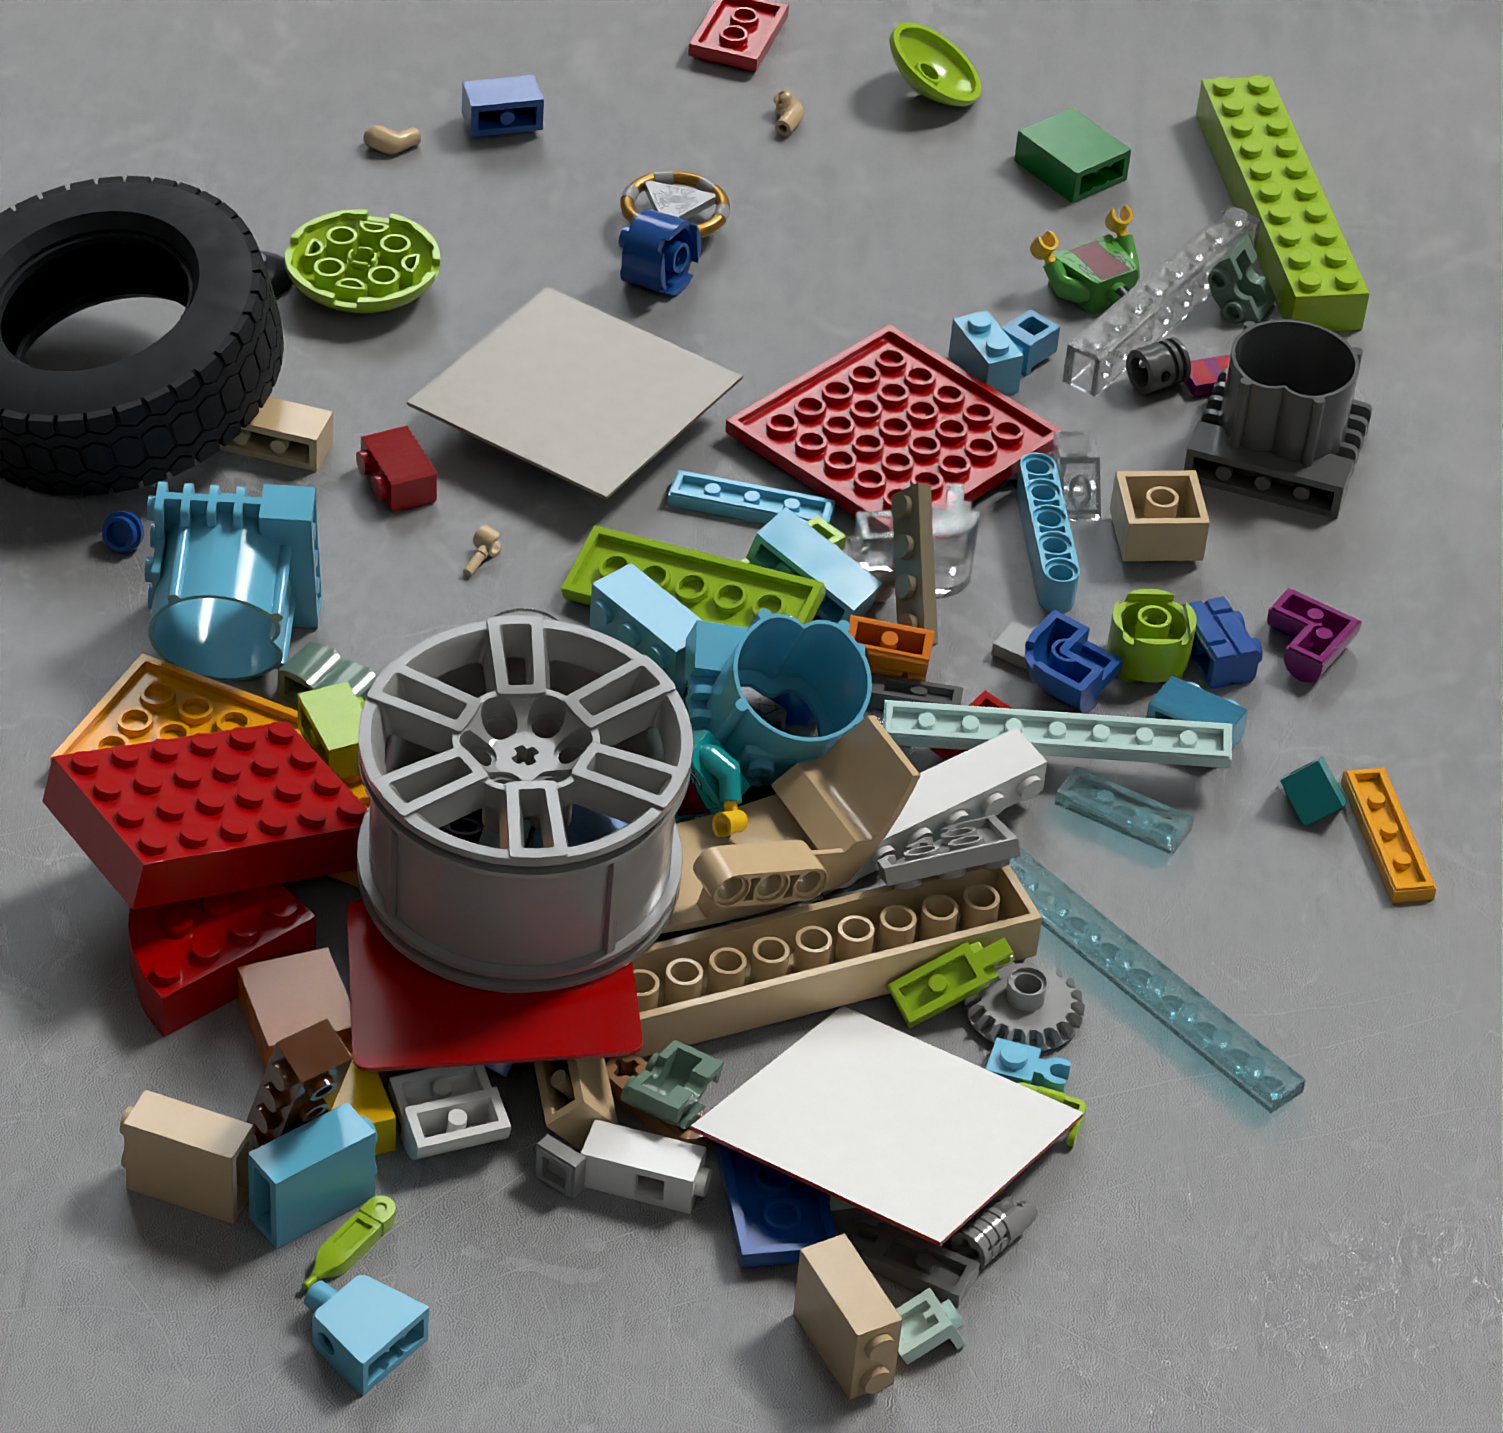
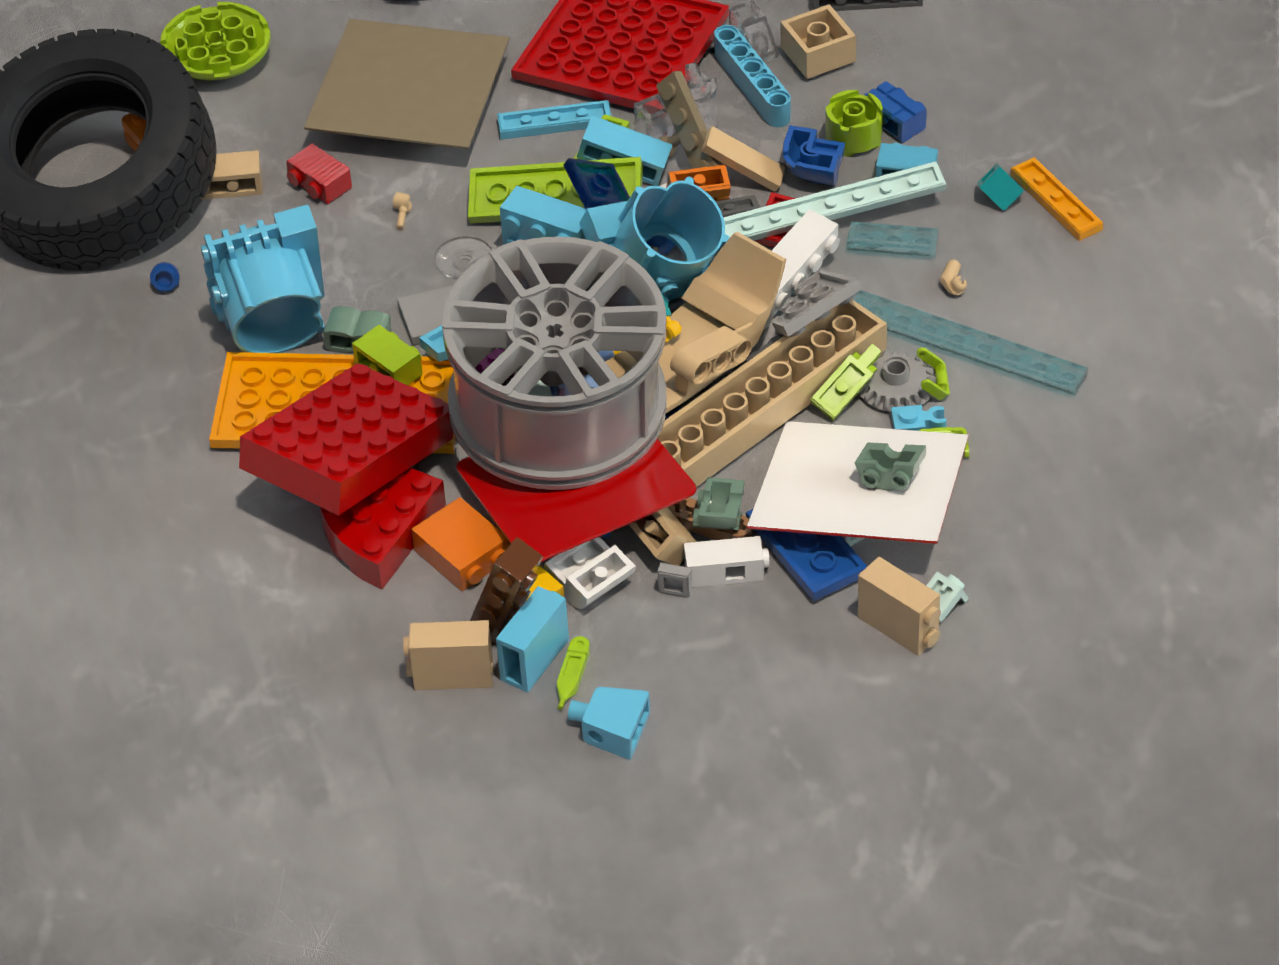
camera: 15 degrees left, 5 degrees up
(736, 590) = (596, 182): none -> tile
(914, 1261) = (917, 559): dark grey hinge -> none
(930, 1115) = (888, 468): none -> sand green cylinder
(969, 634) = (743, 159): none -> tan tile
(993, 1229) = (953, 526): light grey hinge -> none
(1093, 1020) = (941, 388): none -> lime piece
(1177, 889) = (950, 280): none -> tan arm
(1318, 632) = (952, 82): magenta brick -> none

